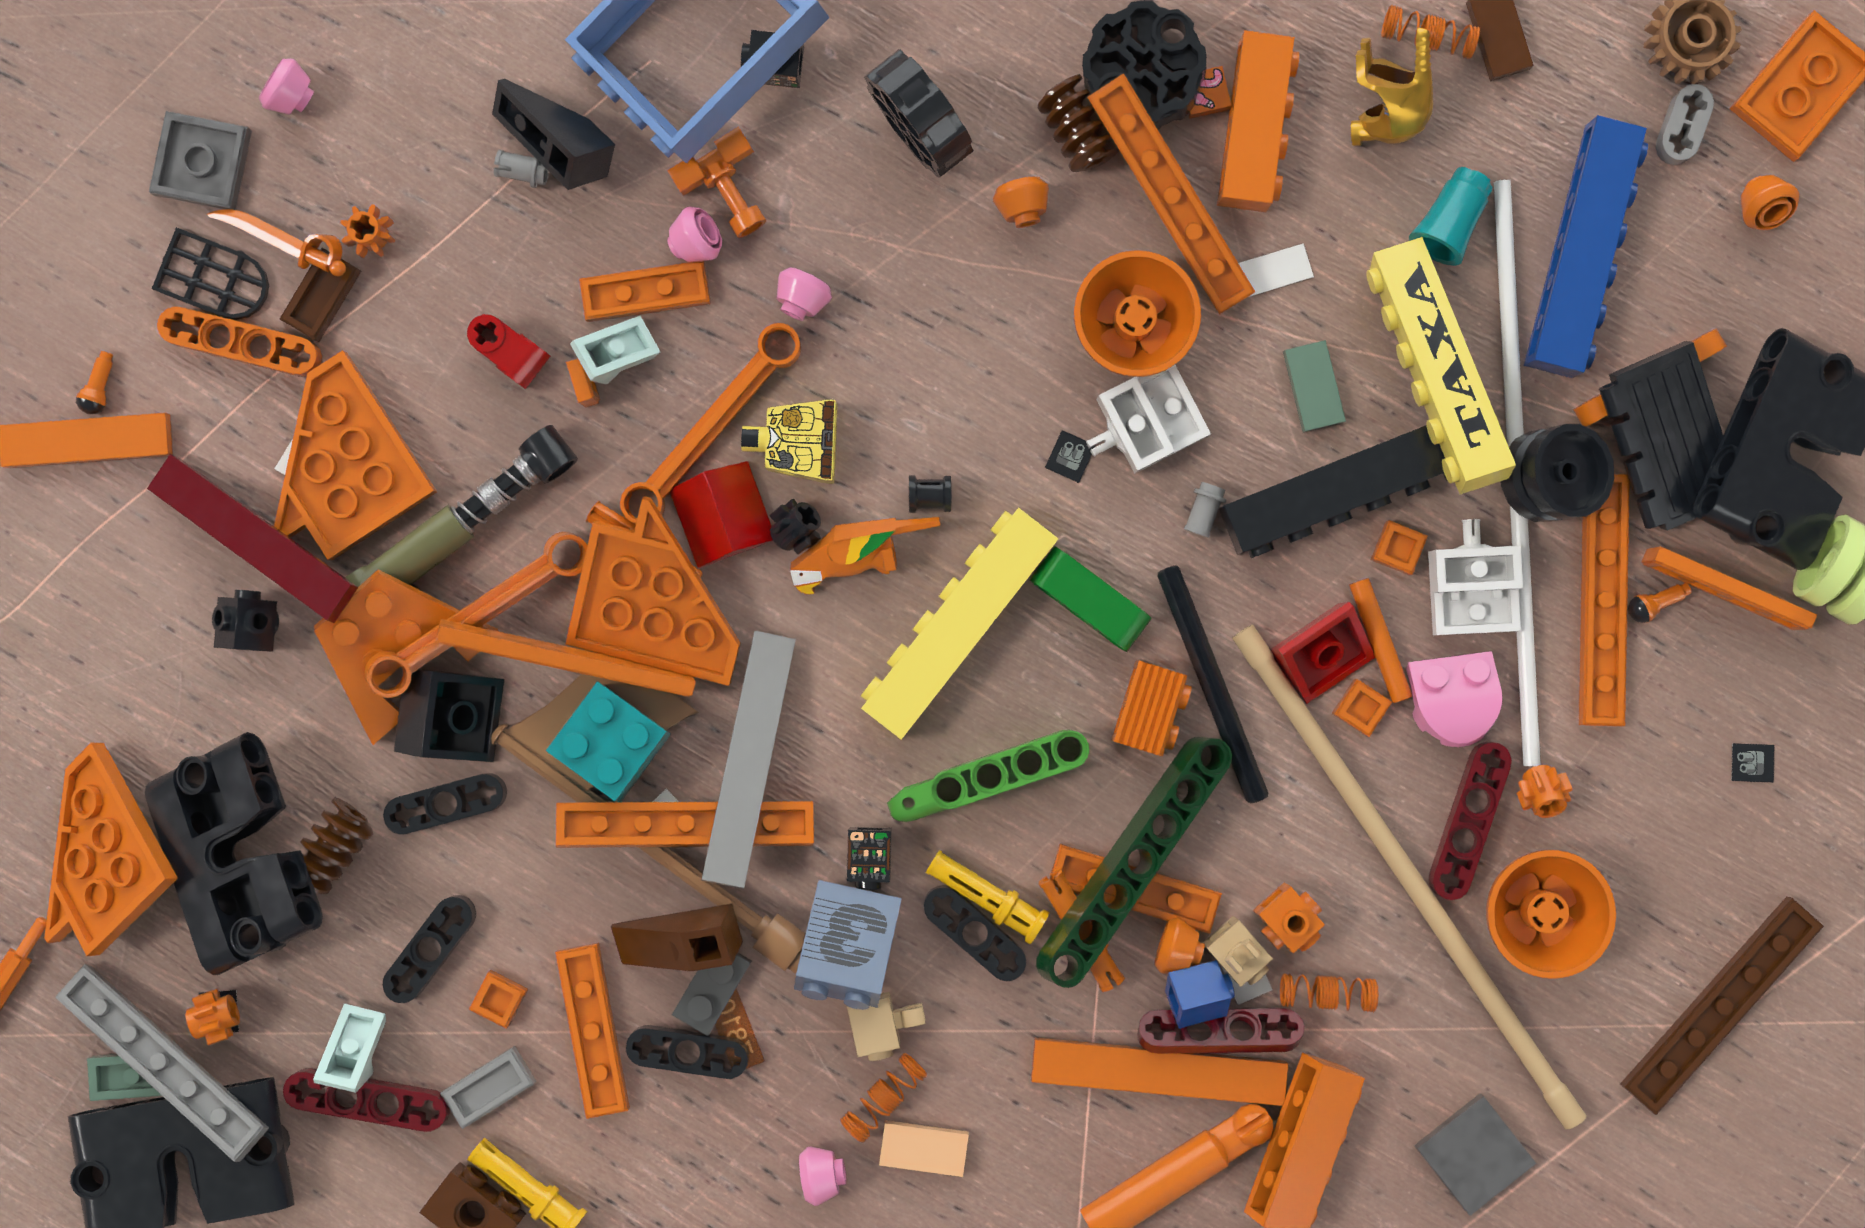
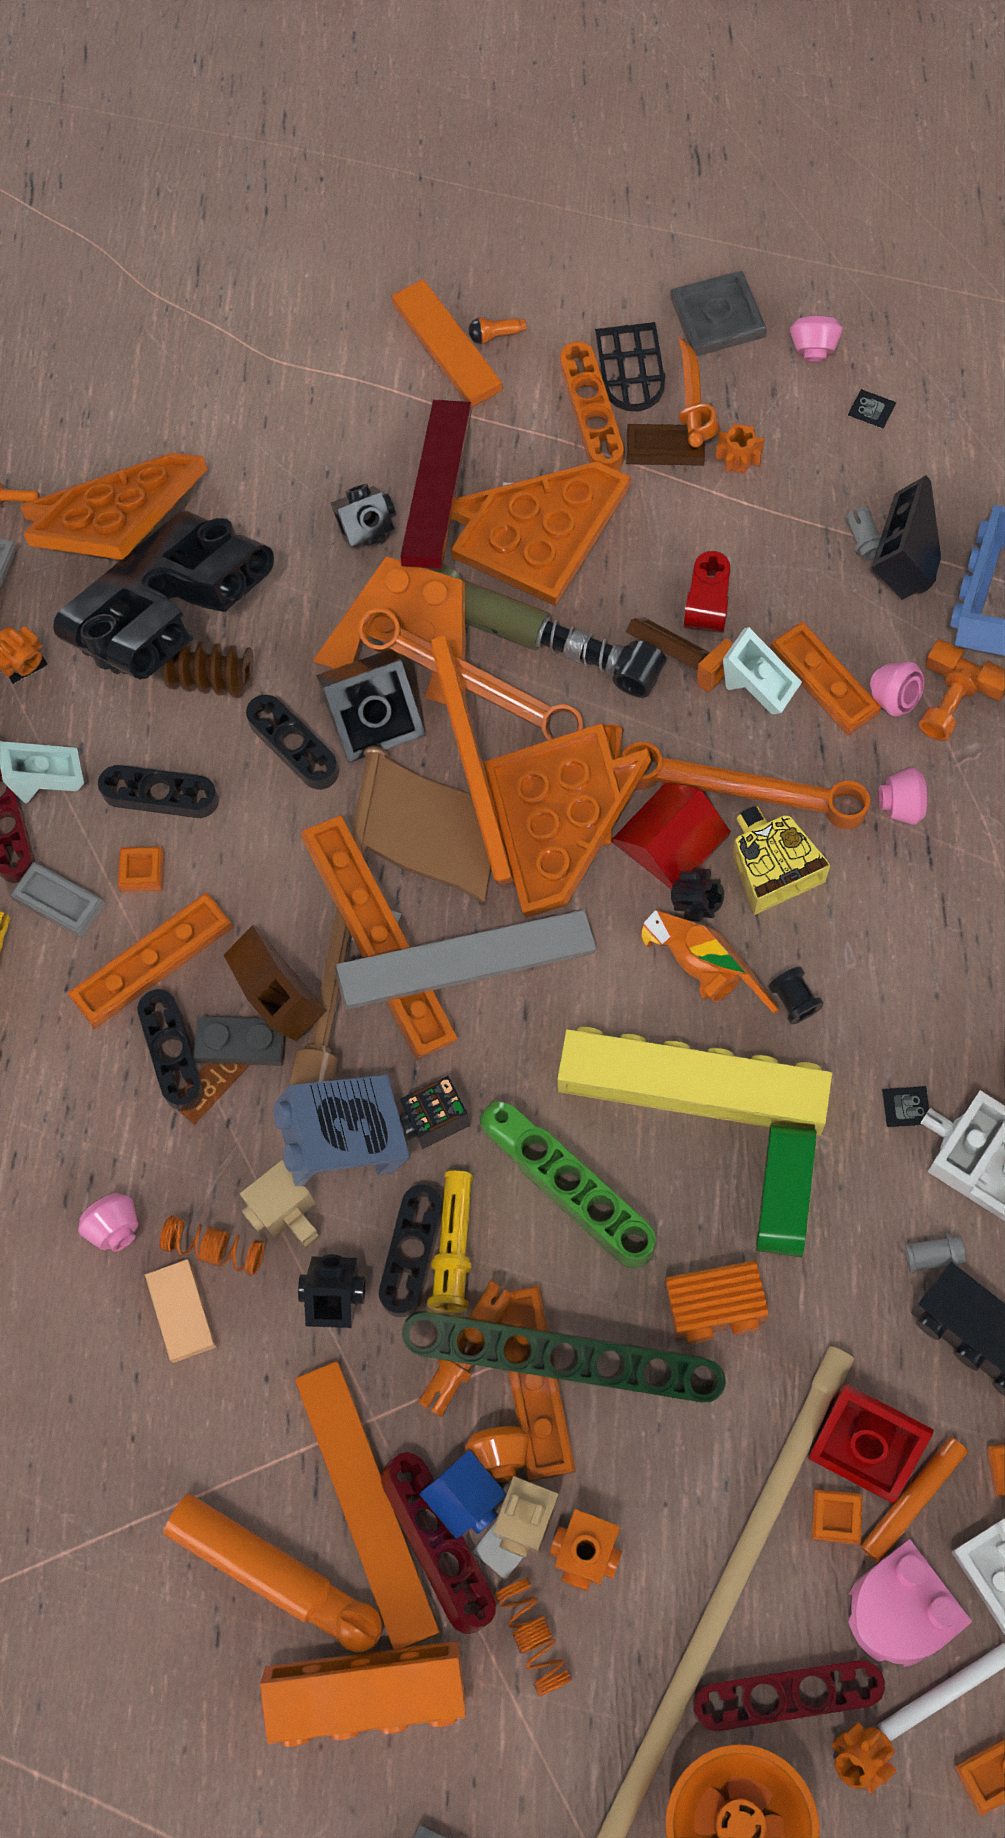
camera: 65 degrees right, 20 degrees down
(388, 79) = (872, 409): none -> black sticker
(536, 412) = (667, 641): none -> reddish brown tile
(608, 742) = (417, 834): teal brick -> none
(979, 1019) = (331, 1291): none -> black brick
(1212, 683) = (772, 1354): black axle -> none

